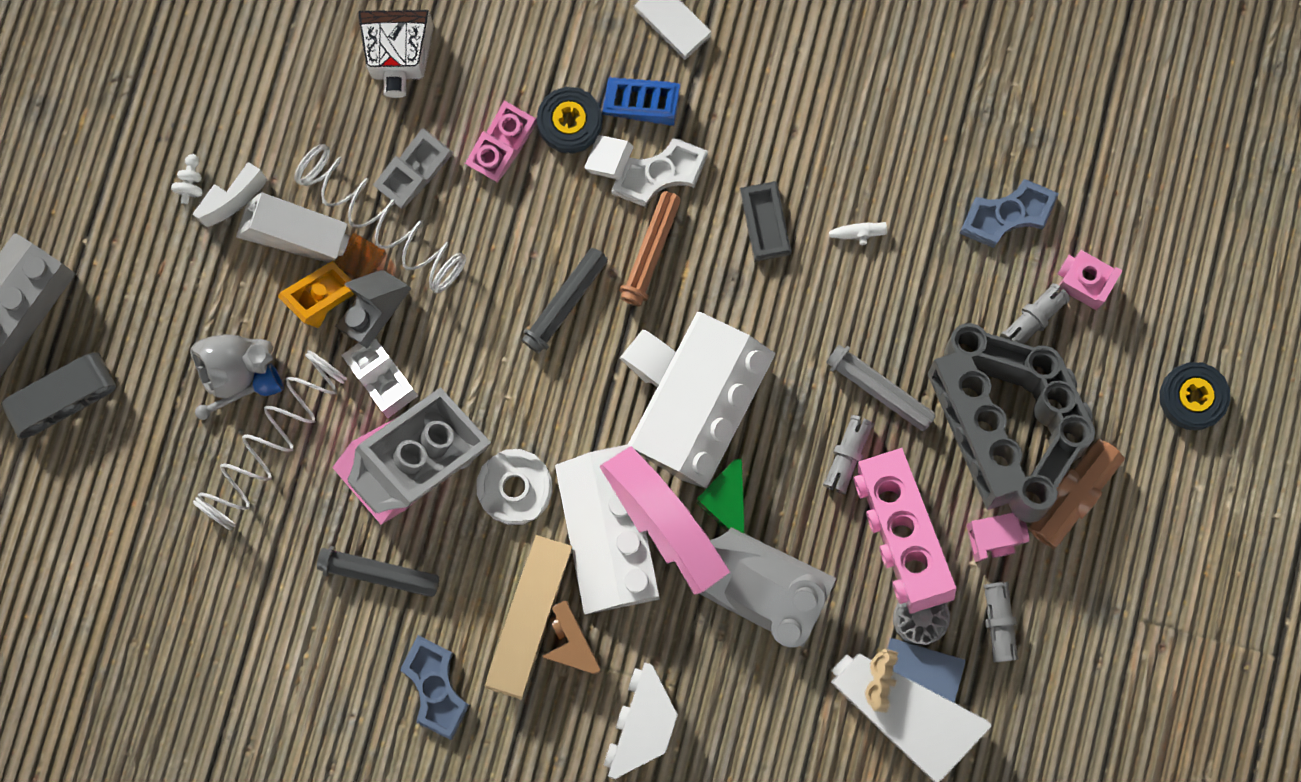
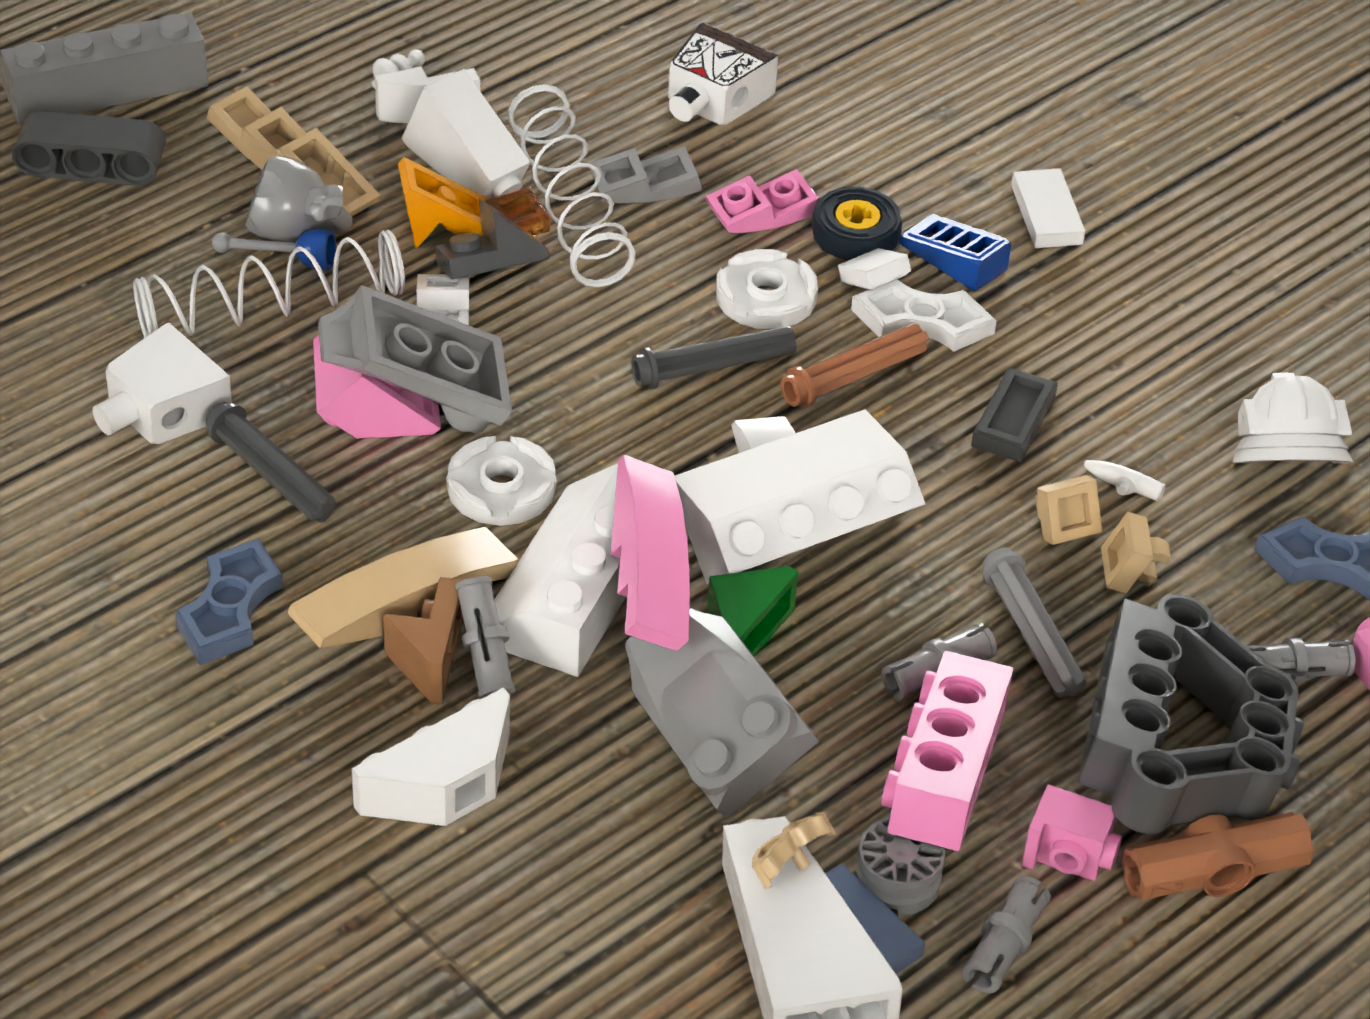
camera: 25 degrees right, 35 degrees down
(186, 308) = (268, 134): none -> tan slope
(272, 565) = (161, 388): none -> white torso
(556, 237) = (766, 309): none -> white tile
(604, 627) = (478, 601): none -> light grey pin
(848, 287) = (1069, 509): none -> tan tile
(903, 299) = (1130, 552): none -> tan tile
(936, 133) = (1293, 422): none -> white helmet

